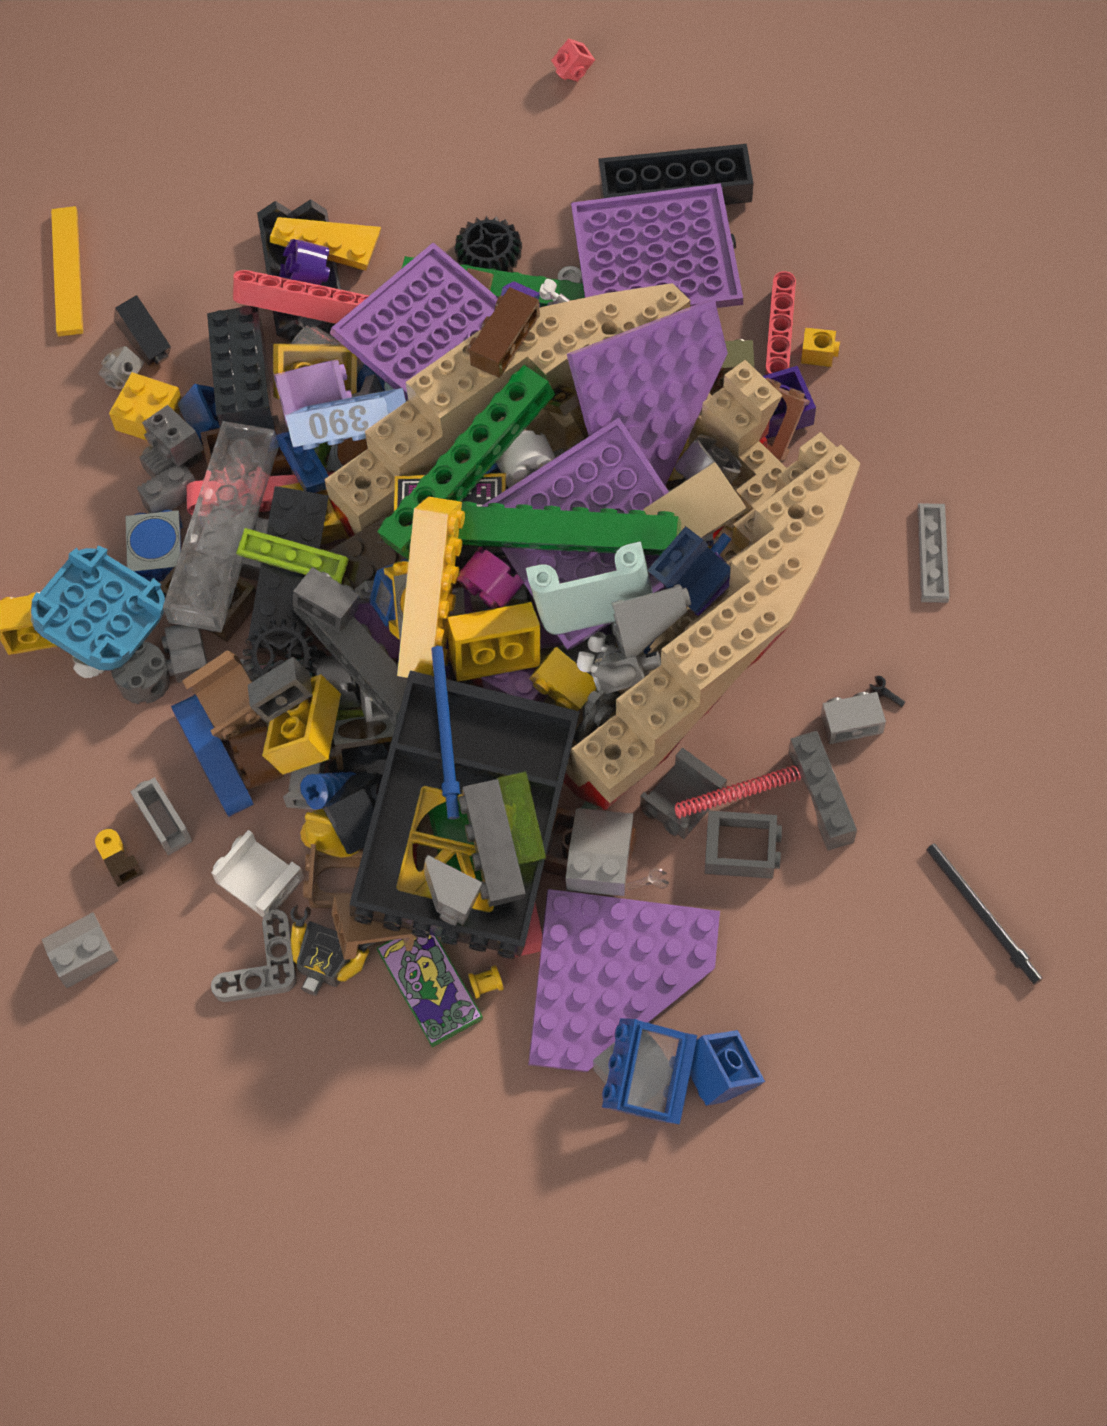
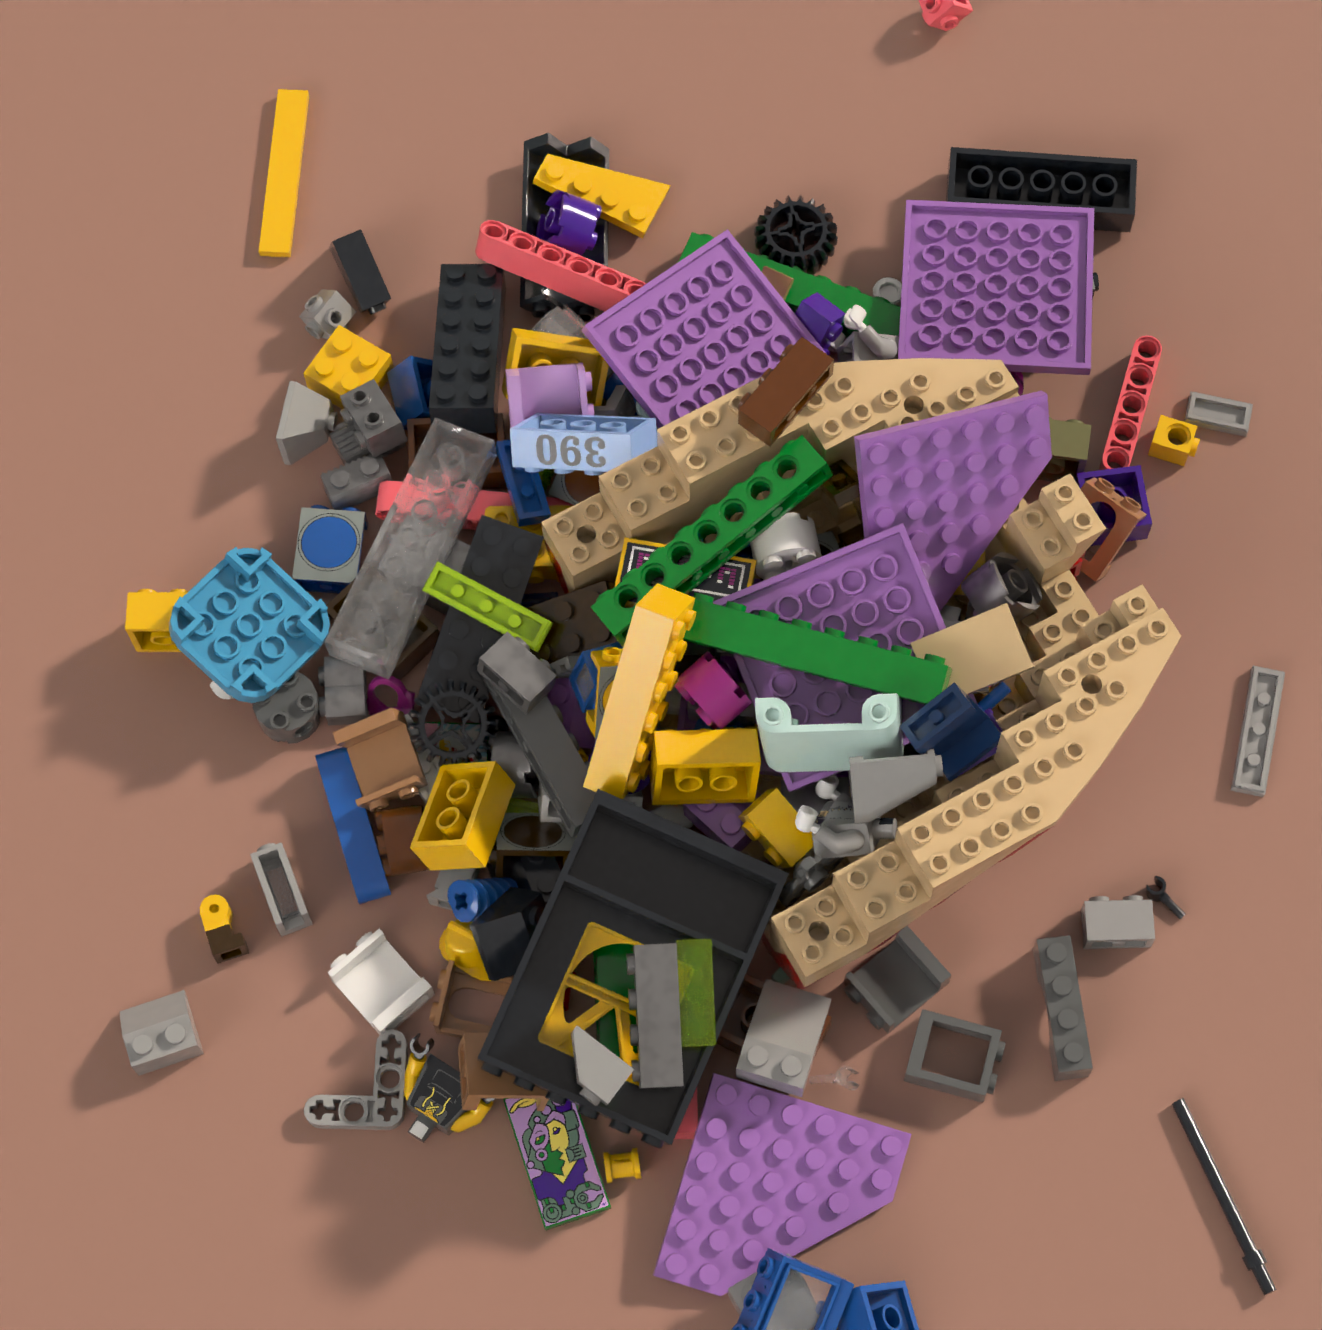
camera: 10 degrees right, 5 degrees up
(116, 452) = (304, 422): none -> light grey slope
(237, 647) = (405, 697): none -> magenta piece
(280, 690) = (444, 771): flat silver brick -> none
(450, 787) = (620, 940): blue bar -> none
(698, 806) = (1013, 985): coral piece -> none
(851, 322) = (1218, 413): none -> light grey tile

